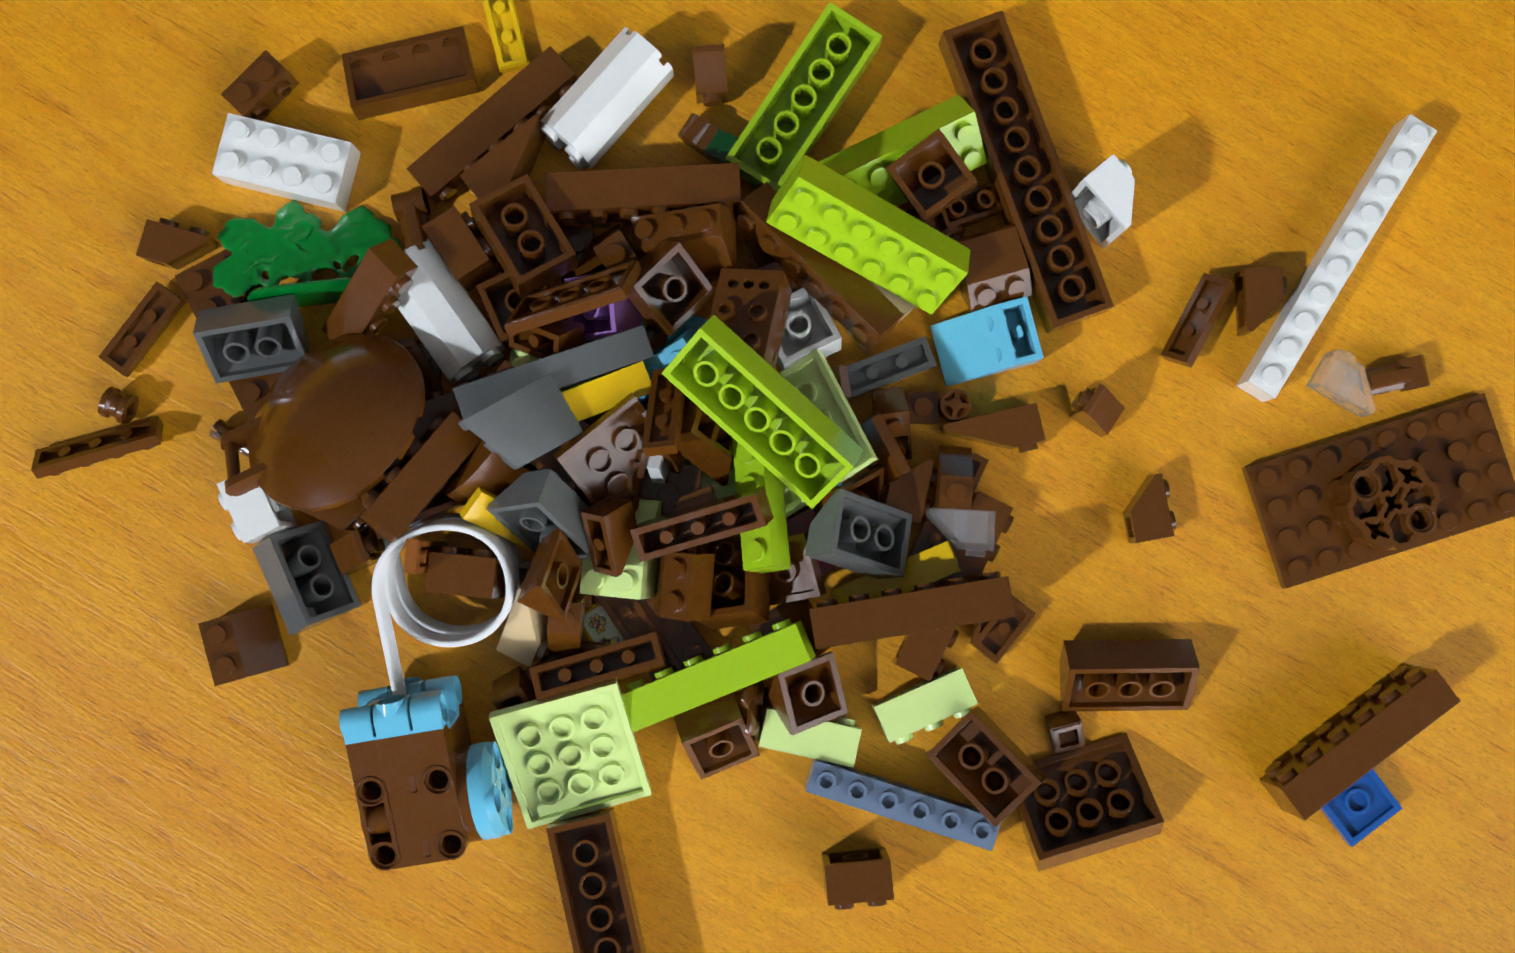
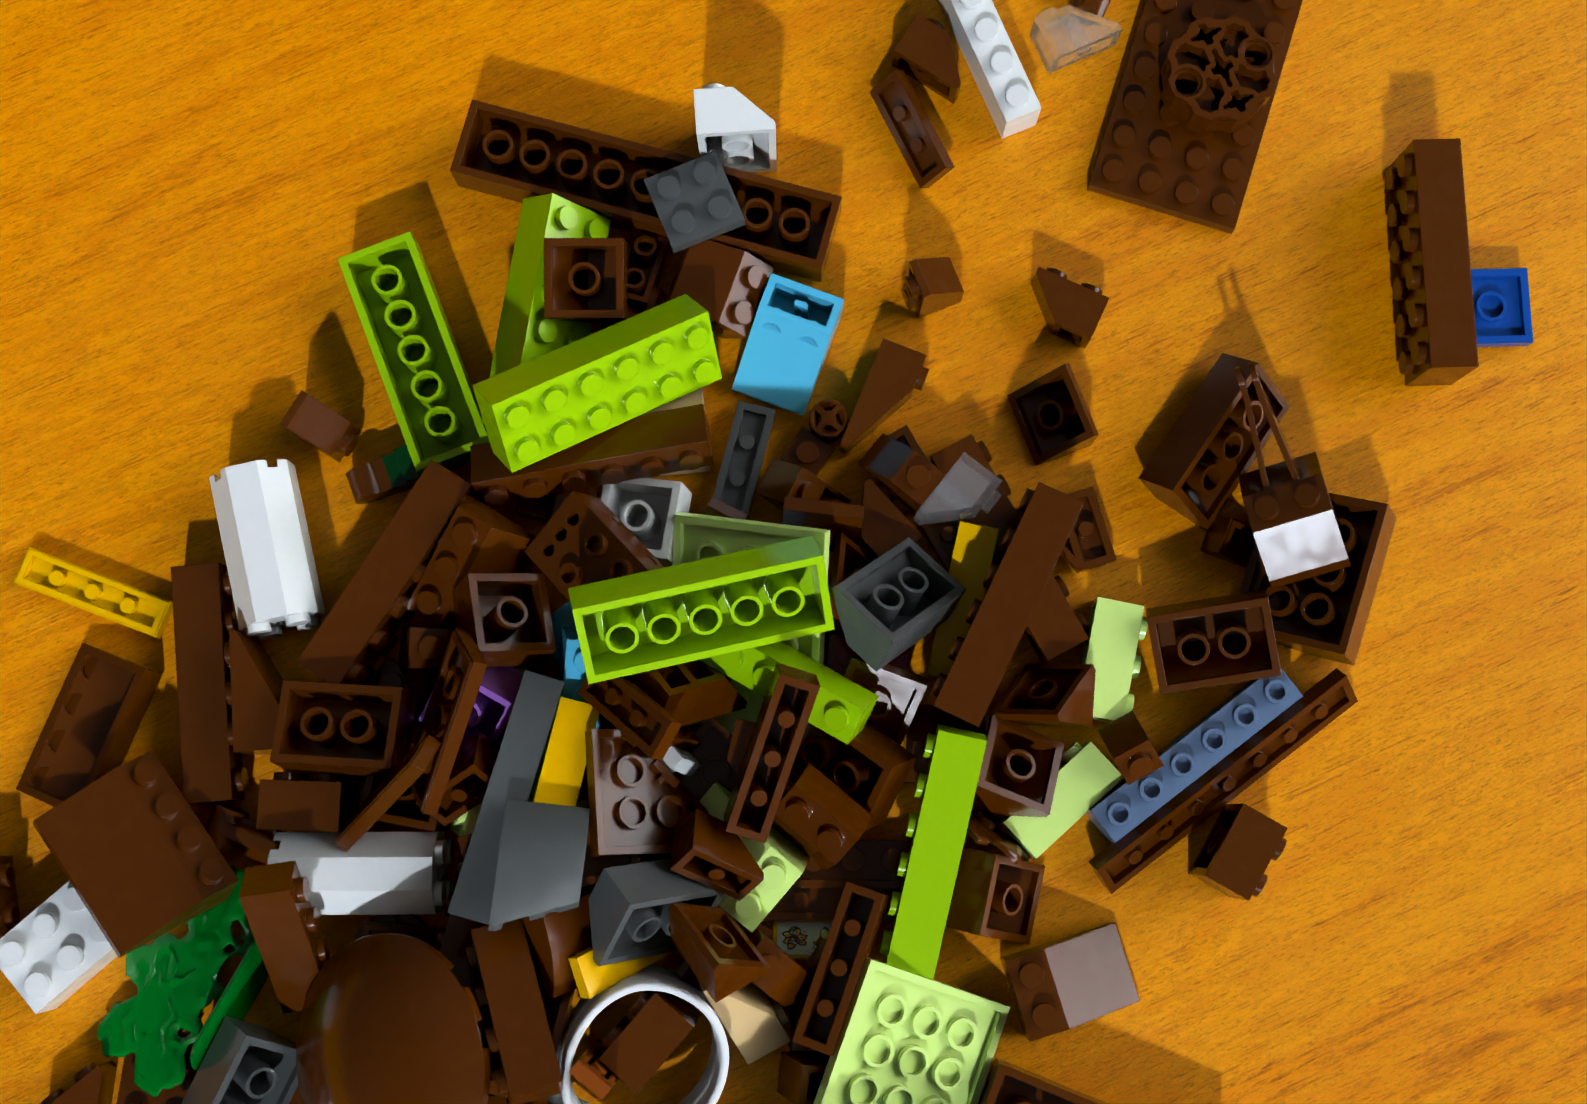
camera: 50 degrees left, 5 degrees down
(353, 162) = (136, 854): none -> reddish brown slope
(502, 294) = (387, 792): none -> reddish brown tile
(695, 823) = (1069, 981): none -> slope
(873, 681) = (1050, 696): none -> reddish brown slope
(875, 758) = (1130, 747): none -> reddish brown brick
(900, 837) = (1224, 781): none -> reddish brown plate
(1038, 210) = (694, 202): none -> dark grey plate
(1065, 553) = (1053, 415): none -> reddish brown slope
(1116, 753) = (1289, 506): none -> reddish brown slope

